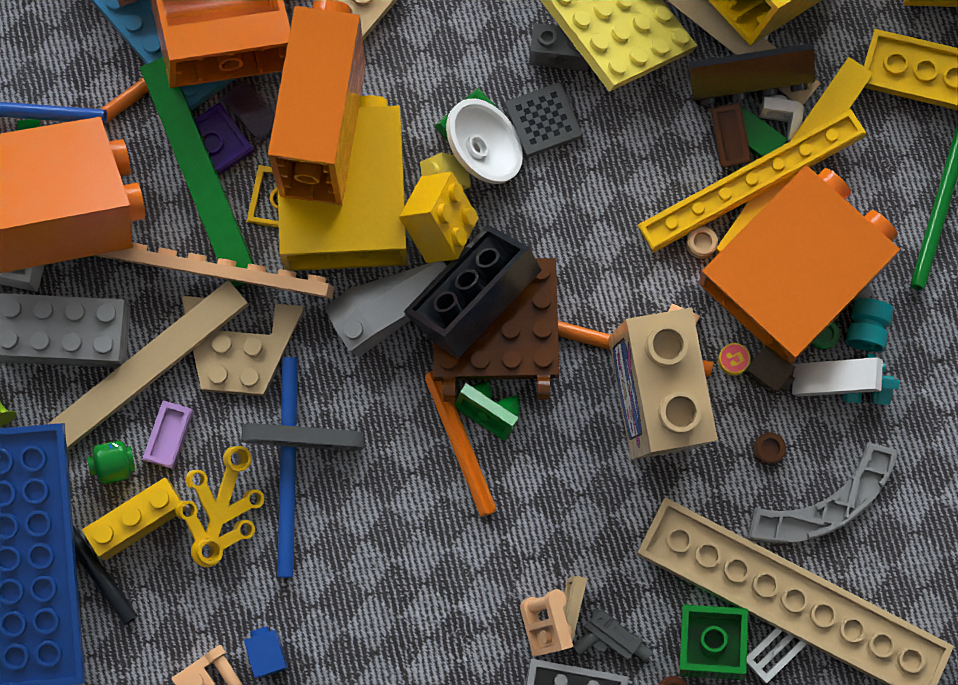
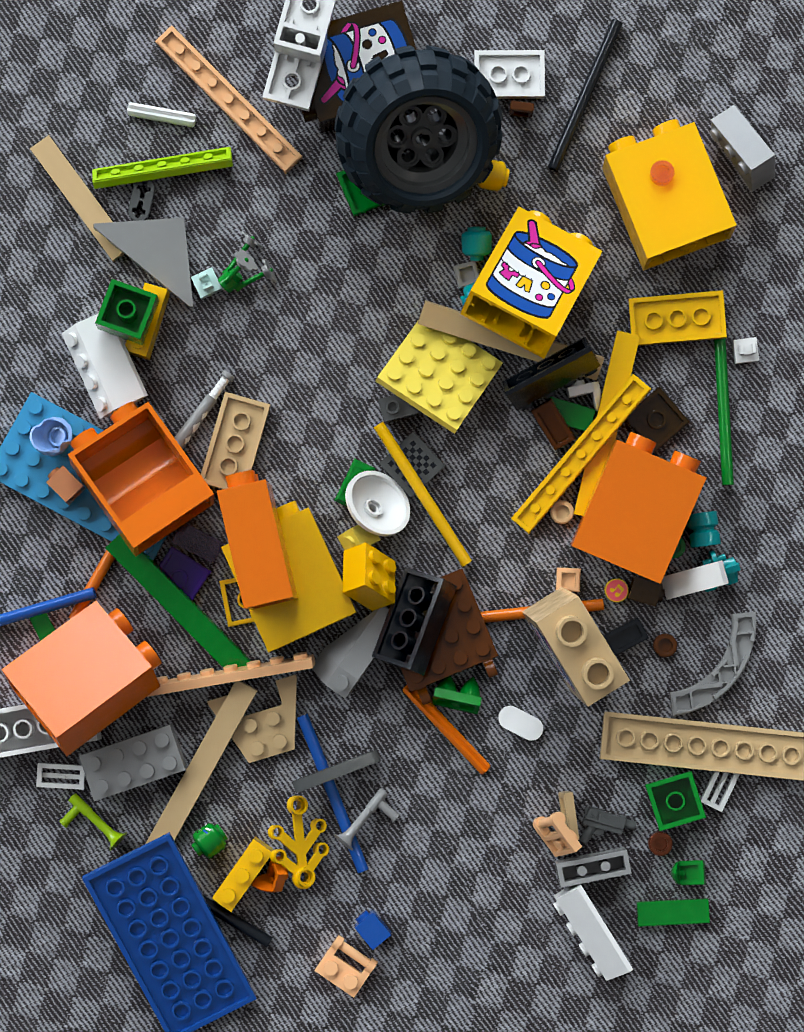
camera: 20 degrees left, 10 degrees up
(168, 435) = (239, 804): lavender tile -> none
(170, 542) = (273, 880): none -> orange plate
(337, 498) = (376, 802): none -> light grey piece
(542, 155) = (422, 493): none -> yellow piece
(554, 472) = (520, 723): none -> white tile
(732, 418) = (626, 636): none -> black tile
(864, 174) = (657, 418): none -> dark brown tile

